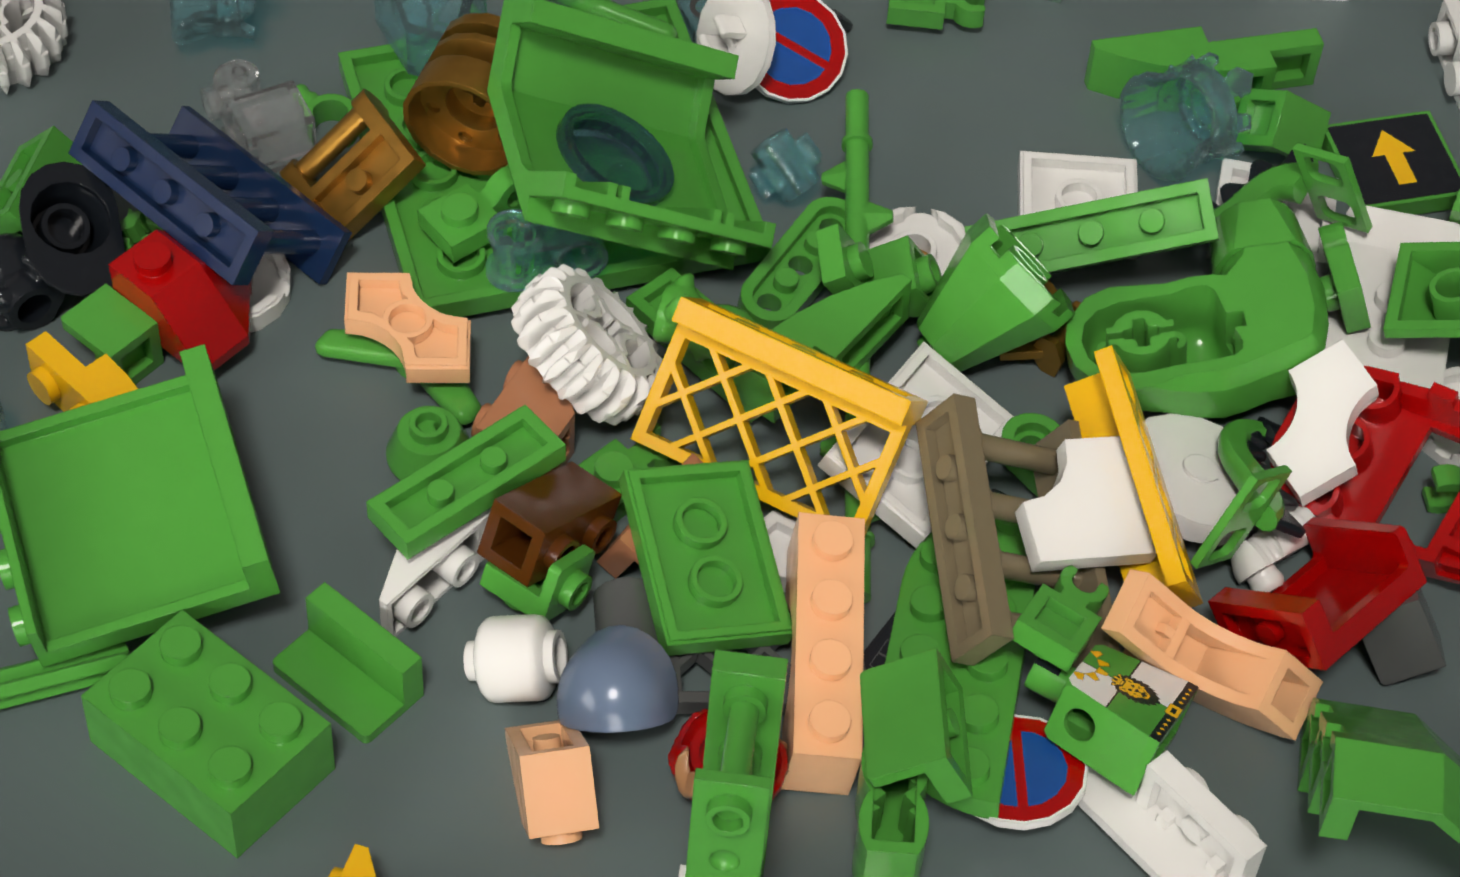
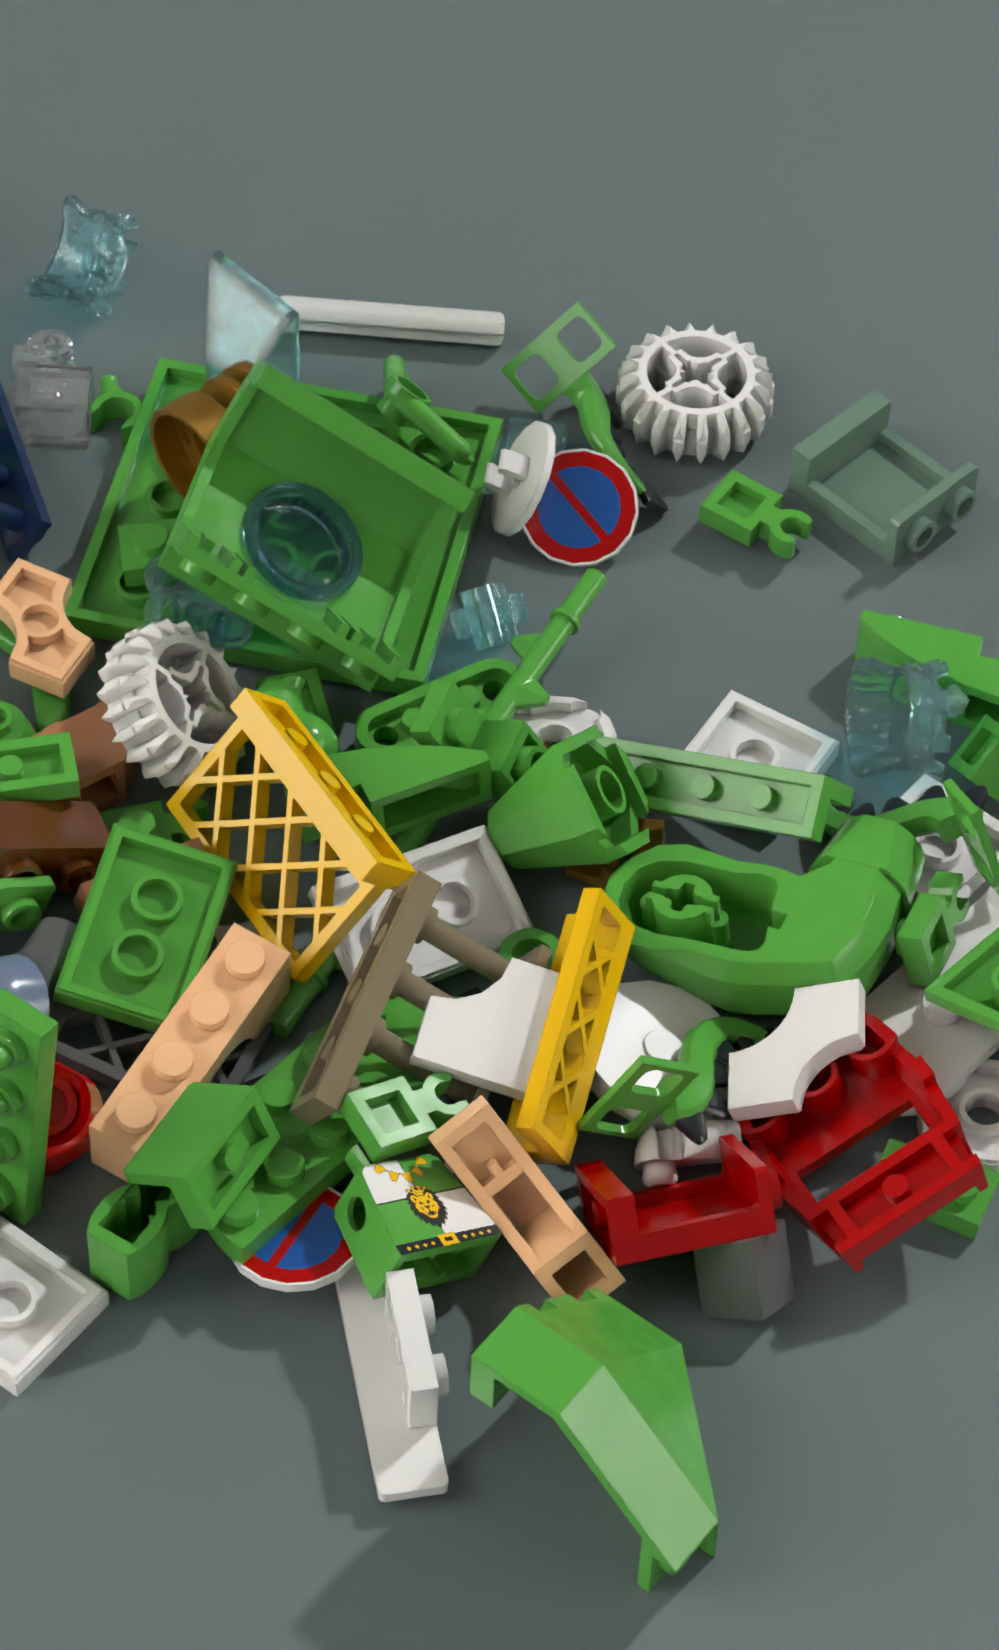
camera: 30 degrees right, 0 degrees up
(366, 174) = (94, 467): pearl gold plate -> none

